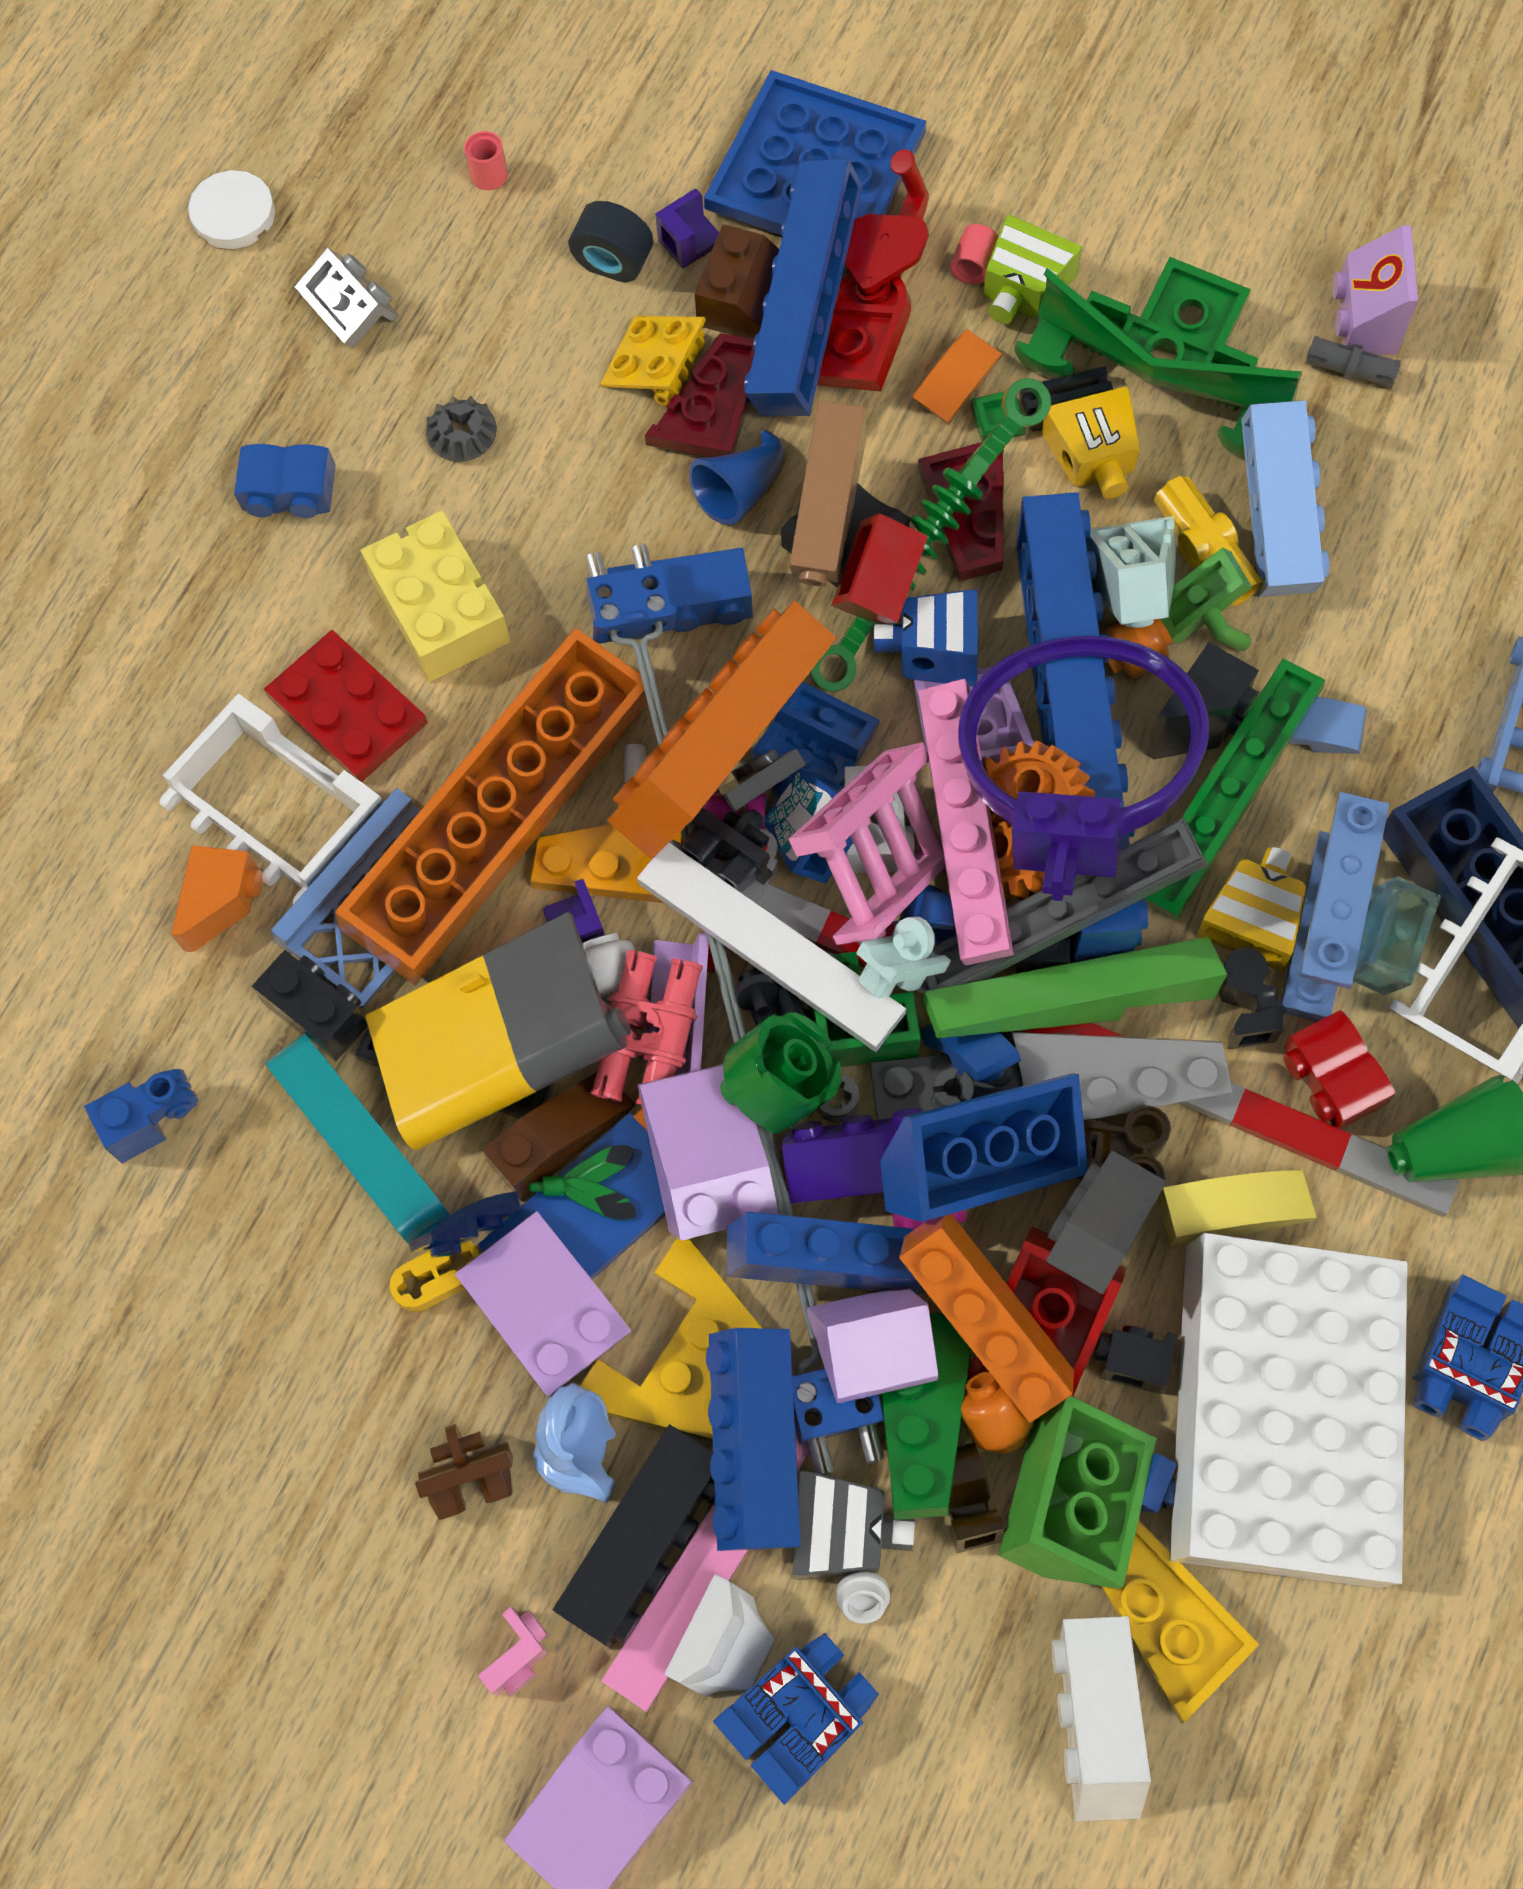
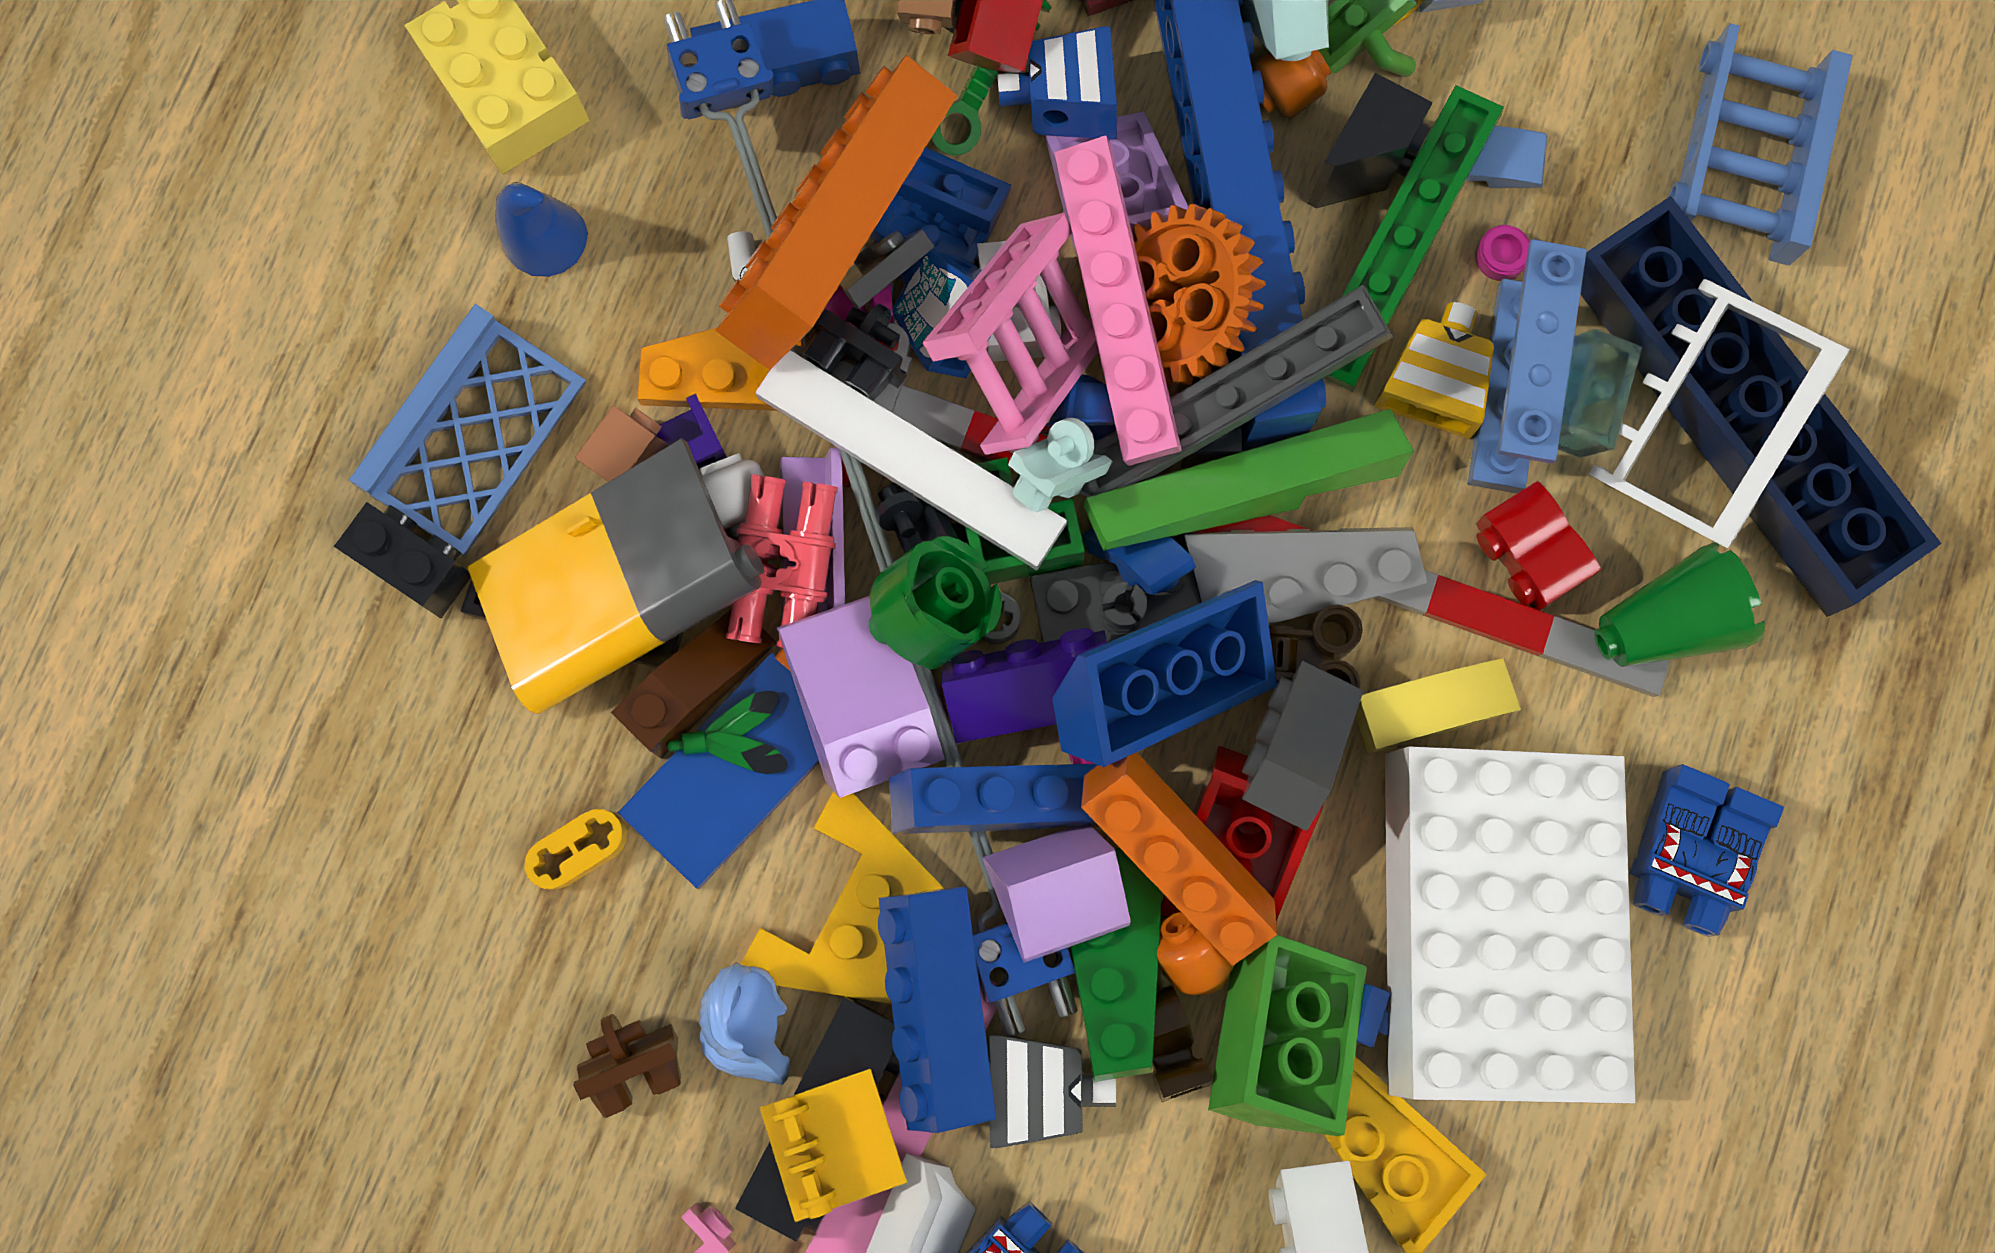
camera: 10 degrees left, 10 degrees up
(130, 1115) = (216, 703): blue brick -> none
(214, 894) = (282, 440): orange slope -> none
(216, 739) = (260, 267): white hinge -> none
(346, 706) = (408, 208): red plate -> none
(356, 1138) = (471, 706): teal beam -> none
(448, 1233) = (596, 797): clear blue slope -> none
(451, 726) = (538, 230): none -> blue hat
(493, 807) = (587, 316): orange brick -> none
(511, 916) = (621, 443): none -> nougat brick
(543, 1303) = (694, 876): lavender slope -> none
(647, 1556) = (833, 1145): none -> yellow hinge
(863, 1596) = (1066, 1160): white plate -> none
(1070, 831) = (1241, 310): dark purple brick -> none
(1136, 1358) = (1339, 880): black brick -> none
(1245, 989) = (1434, 463): black leg -> none
(1317, 808) = (1502, 252): none -> dark pink tile

